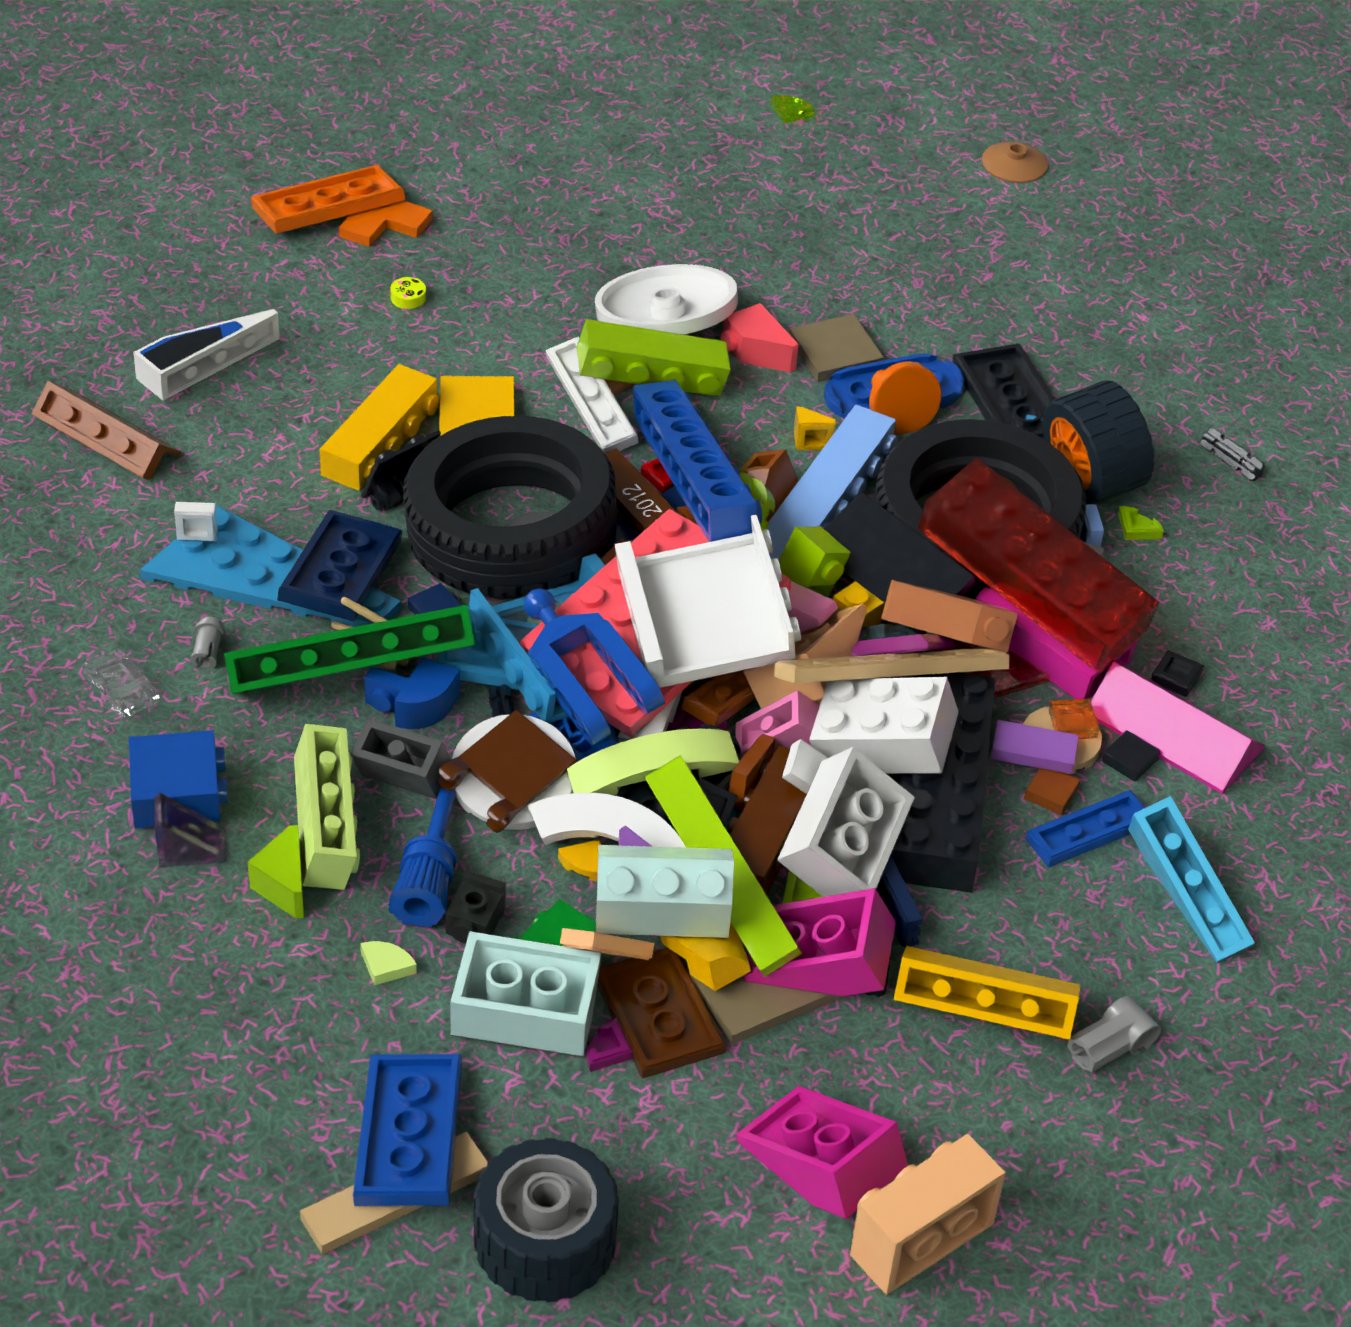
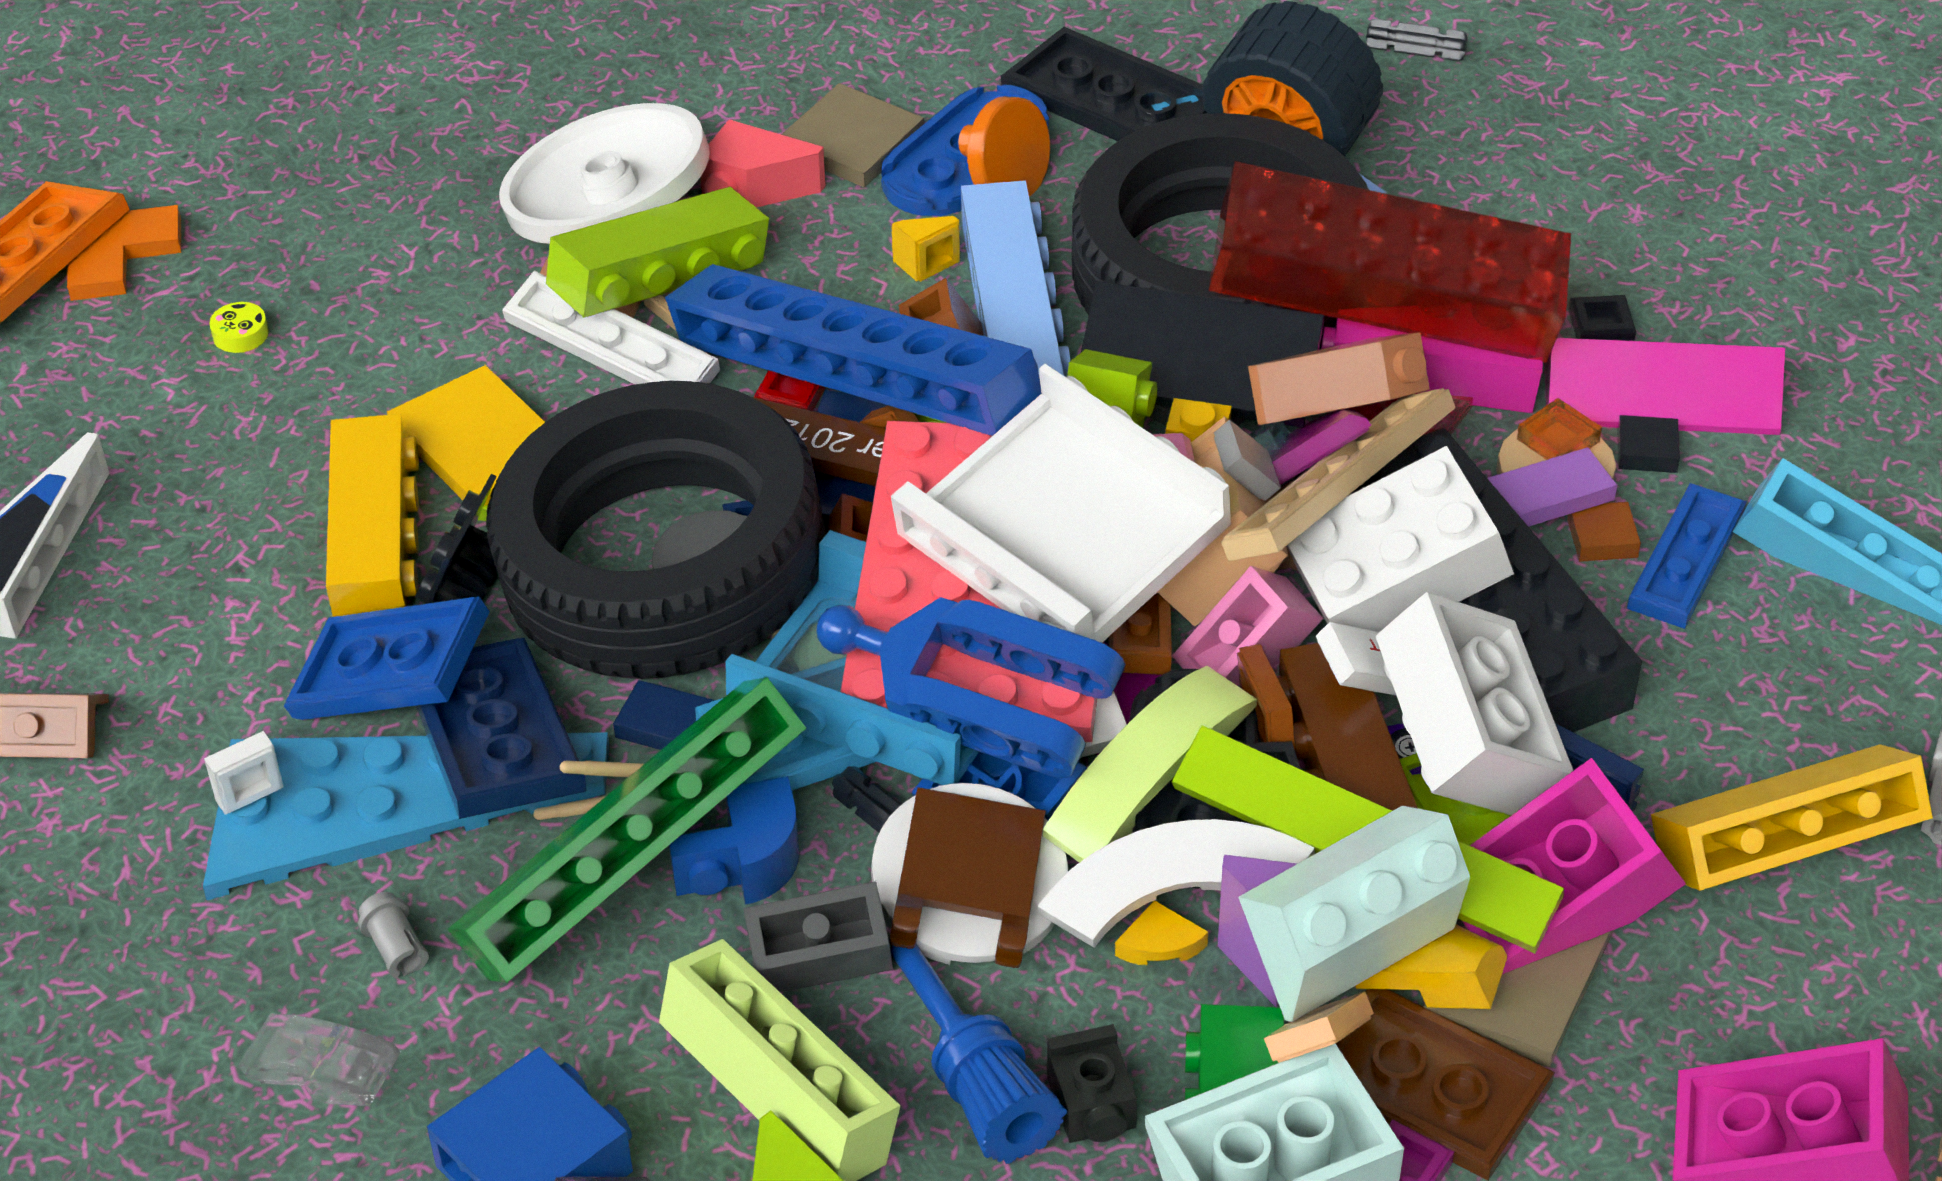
camera: 30 degrees left, 0 degrees up
(320, 503) = (387, 659): none -> blue tile
(841, 630) = (1246, 460): none -> light grey tile
(1138, 526) = (1394, 174): lime tile -> none

